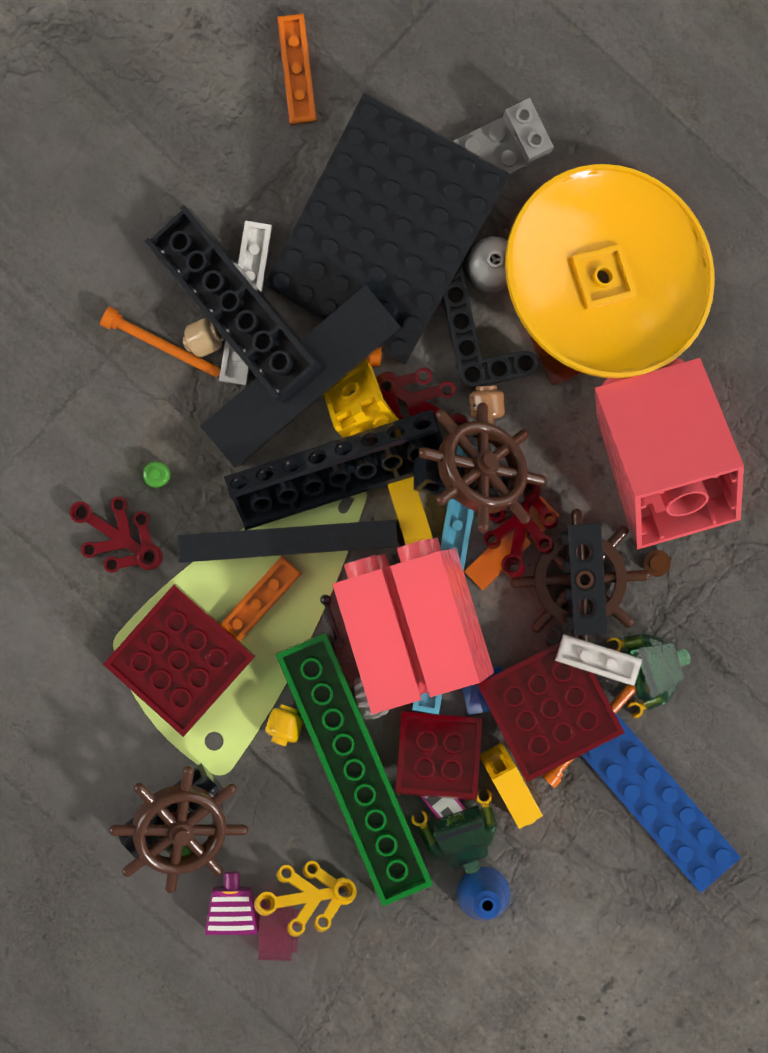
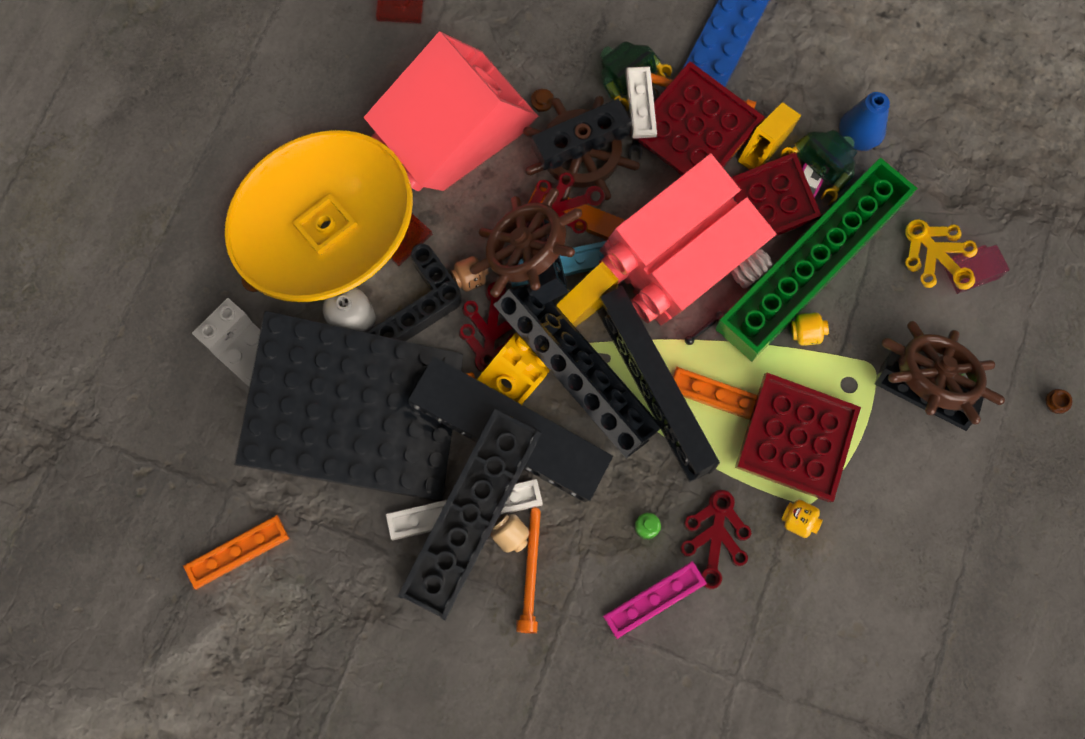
camera: 115 degrees left, 15 degrees down
(83, 449) = (654, 599): none -> dark pink tile
(99, 626) = (802, 518): none -> yellow head
(108, 942) = (1058, 401): none -> reddish brown plate
(232, 908) = (979, 311): magenta torso -> none

